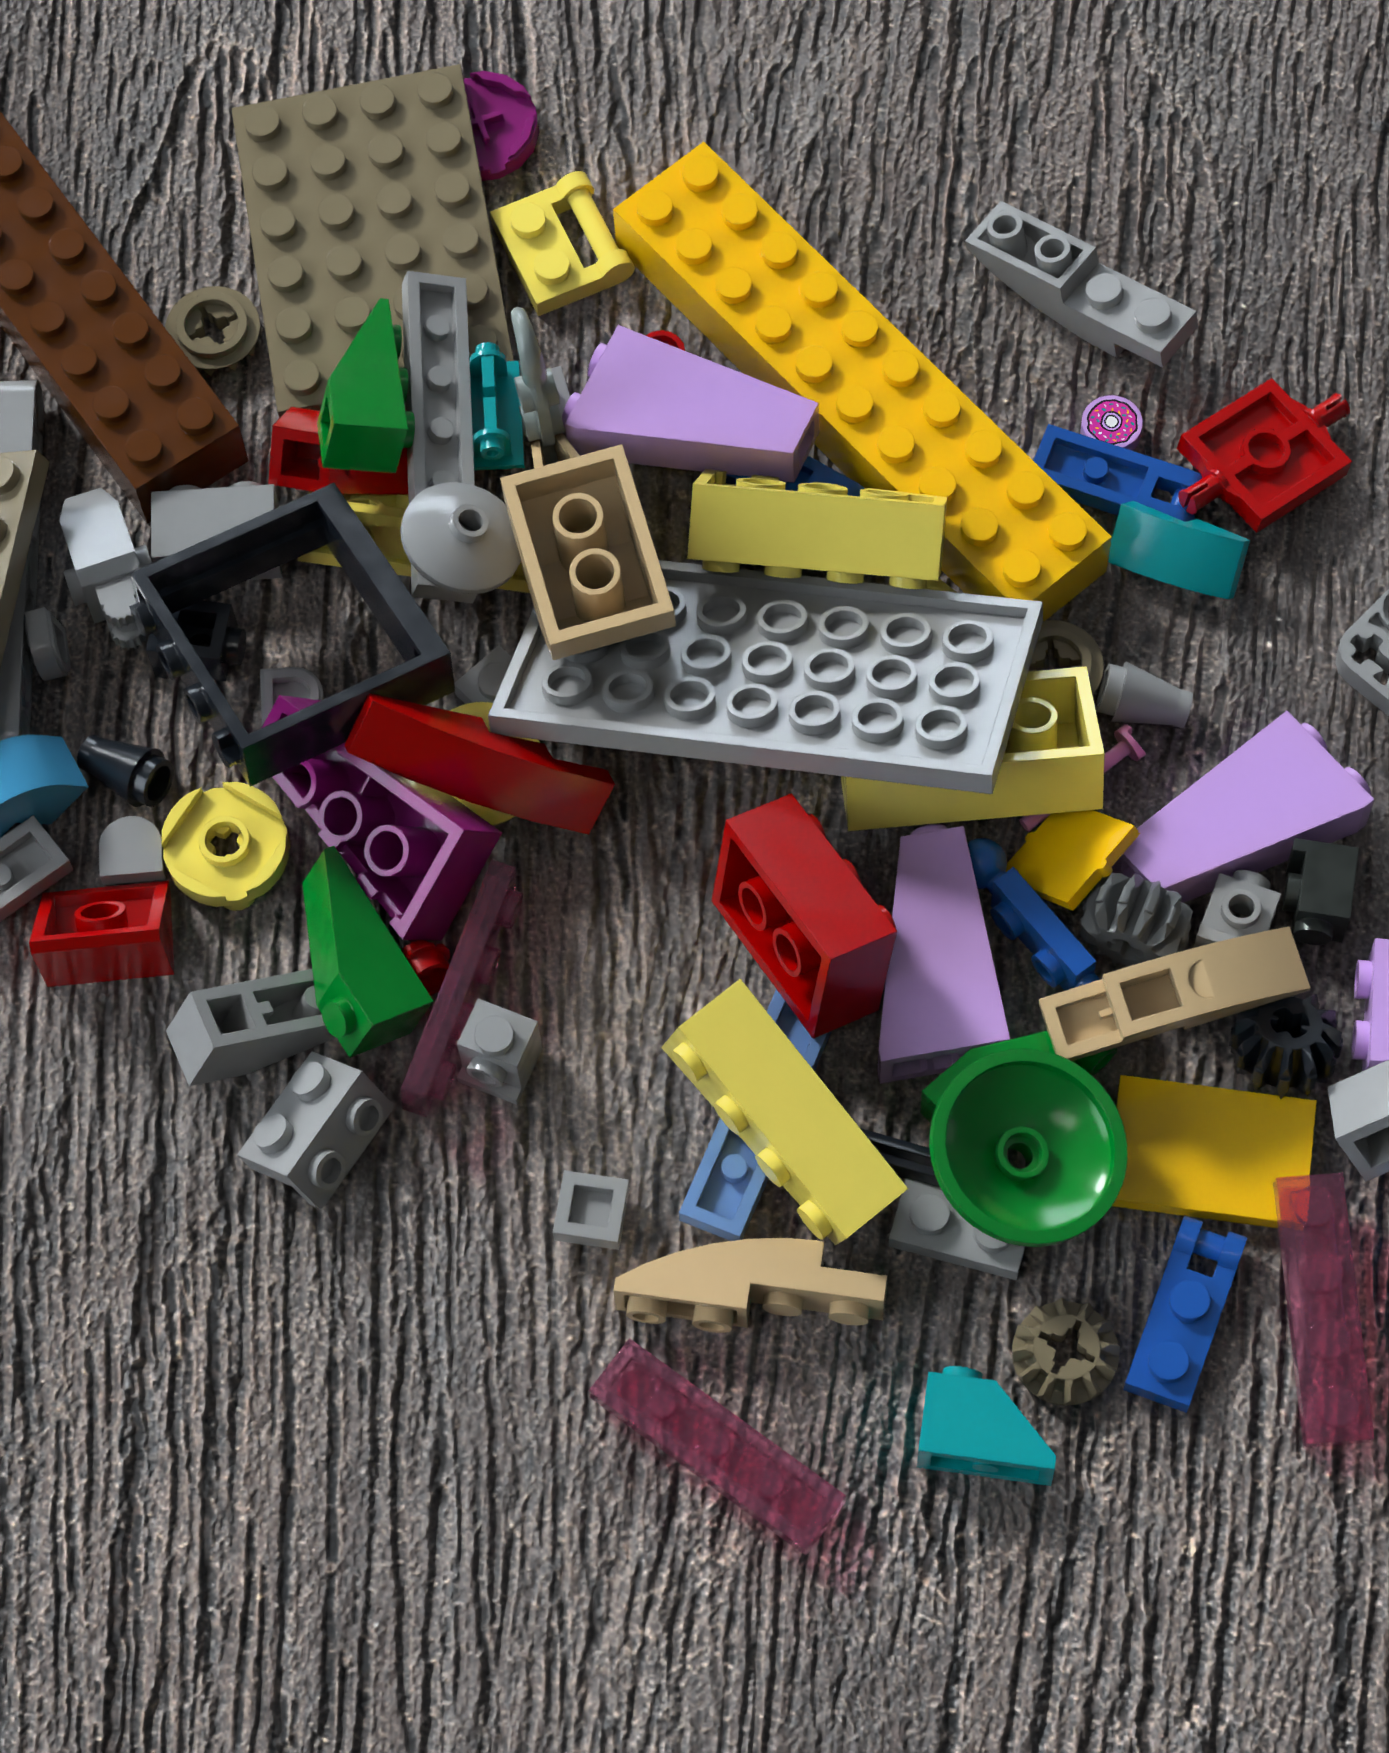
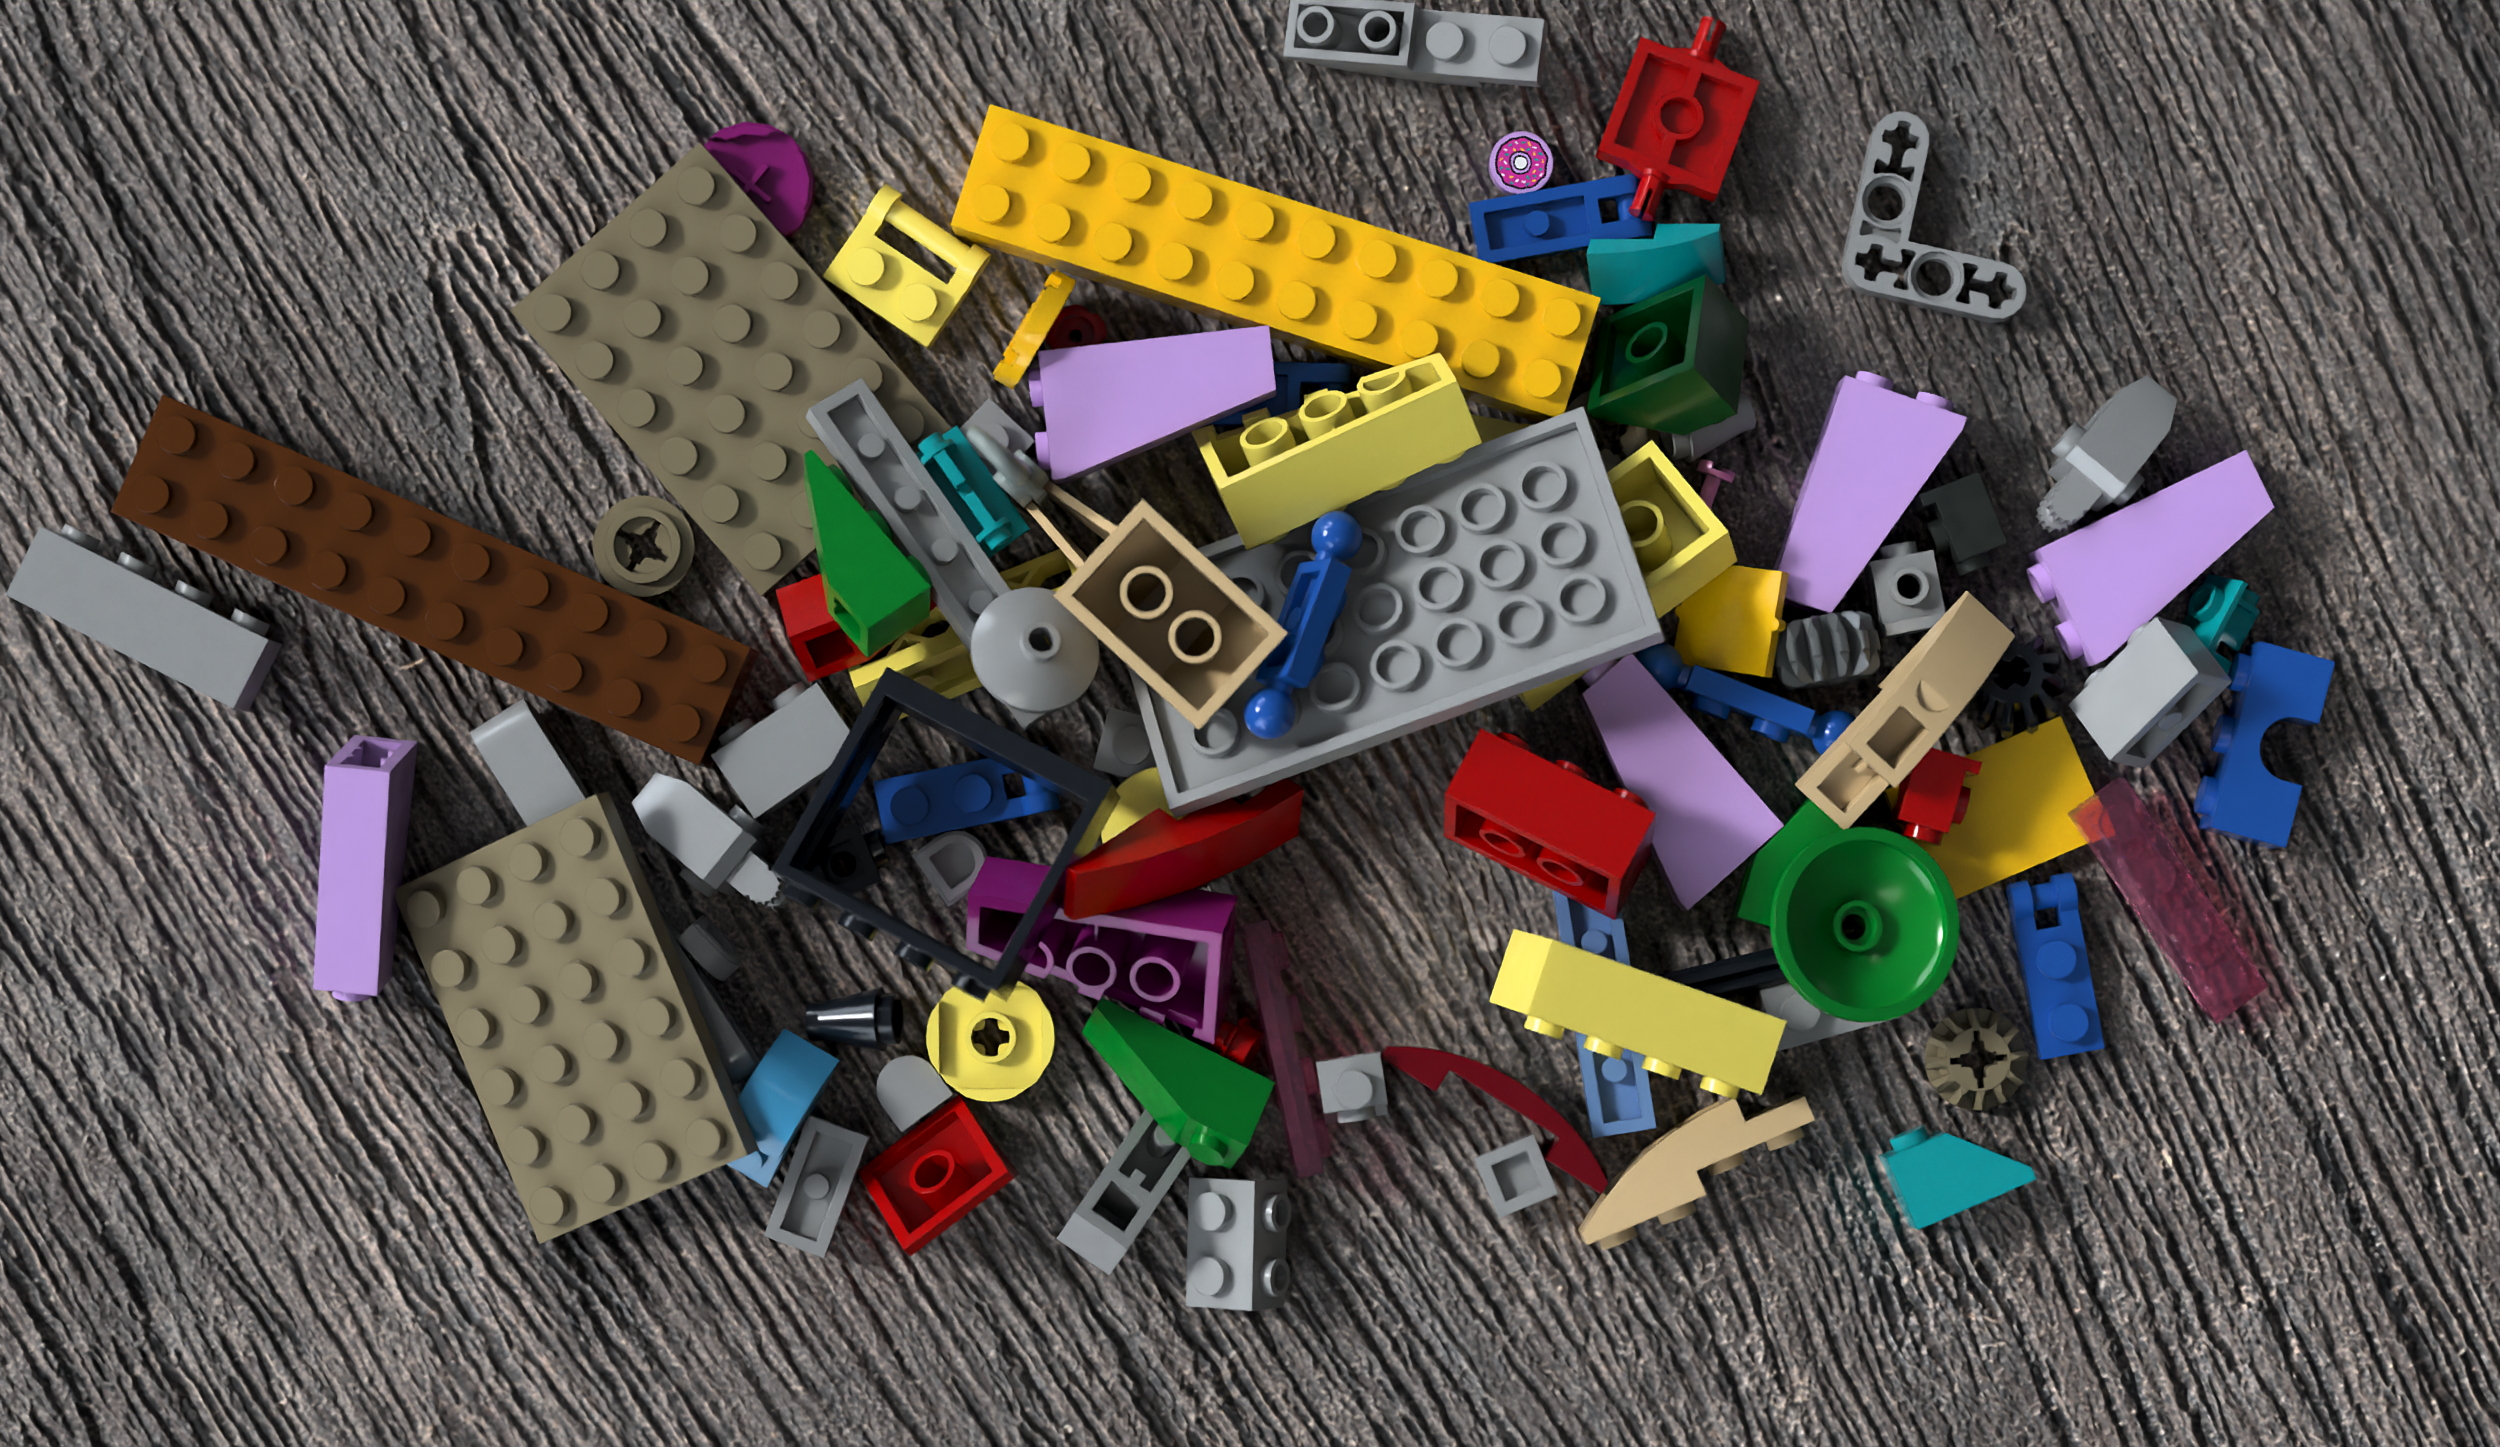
camera: 30 degrees left, 20 degrees up
(327, 646) = (955, 800): none -> blue plate
(583, 1077) = (1566, 1149): none -> dark red slope
(622, 672) = (1307, 614): none -> blue plate
(638, 307) = (1034, 329): none -> yellow tile
(717, 1446) = (1743, 1313): clear pink plate -> none
(1145, 622) = (1671, 360): none -> dark green slope
(1161, 1086) = (1934, 796): none -> red brick

